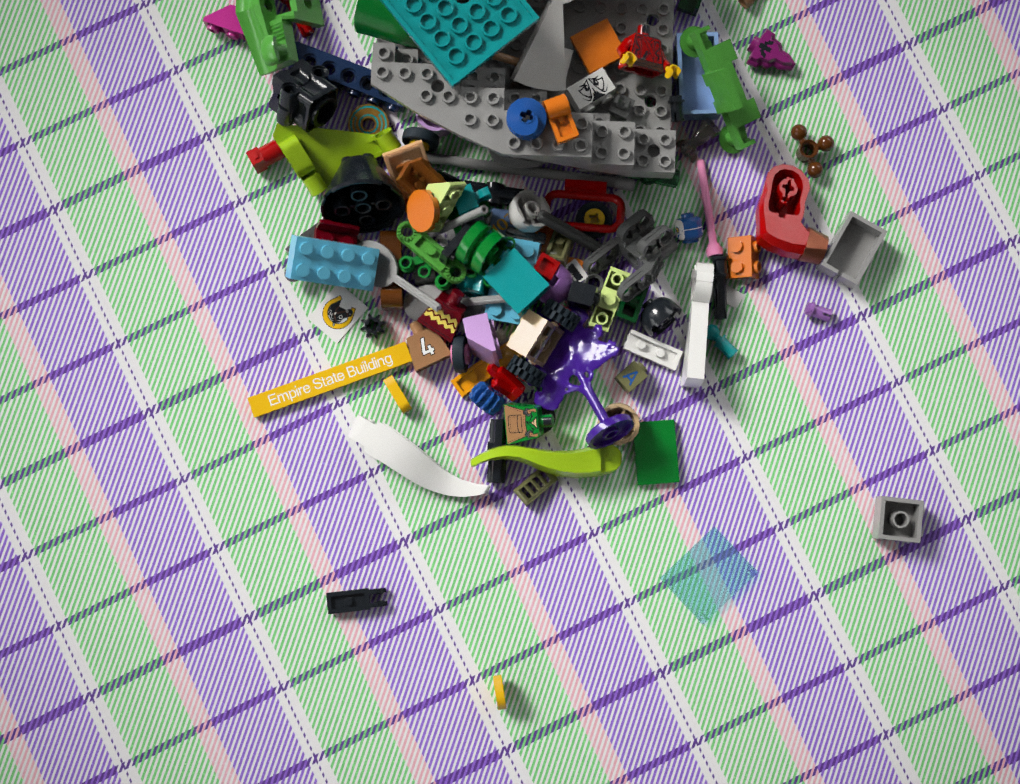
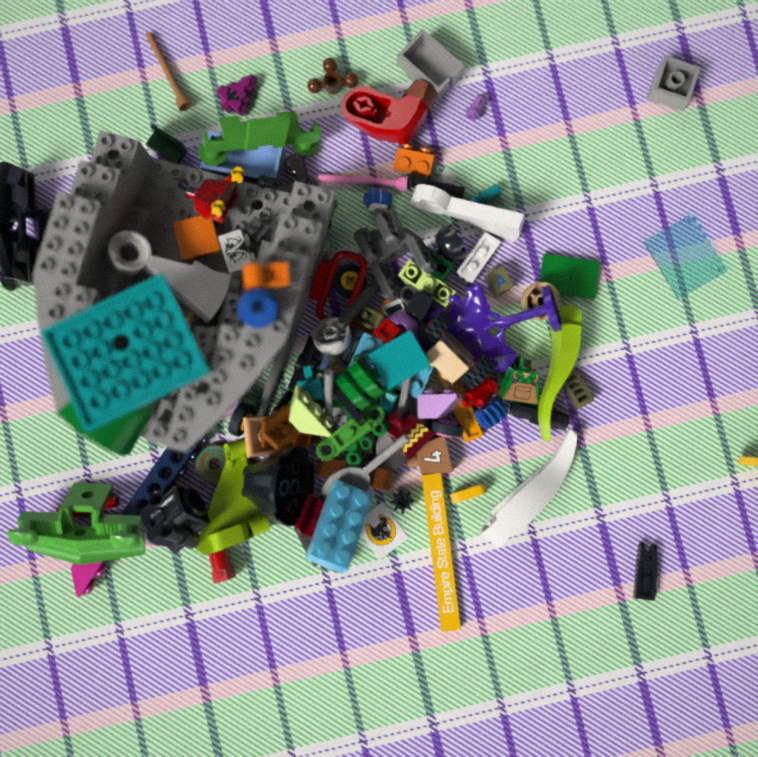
camera: 70 degrees left, 0 degrees up
(423, 210) = (312, 431): orange tile -> none

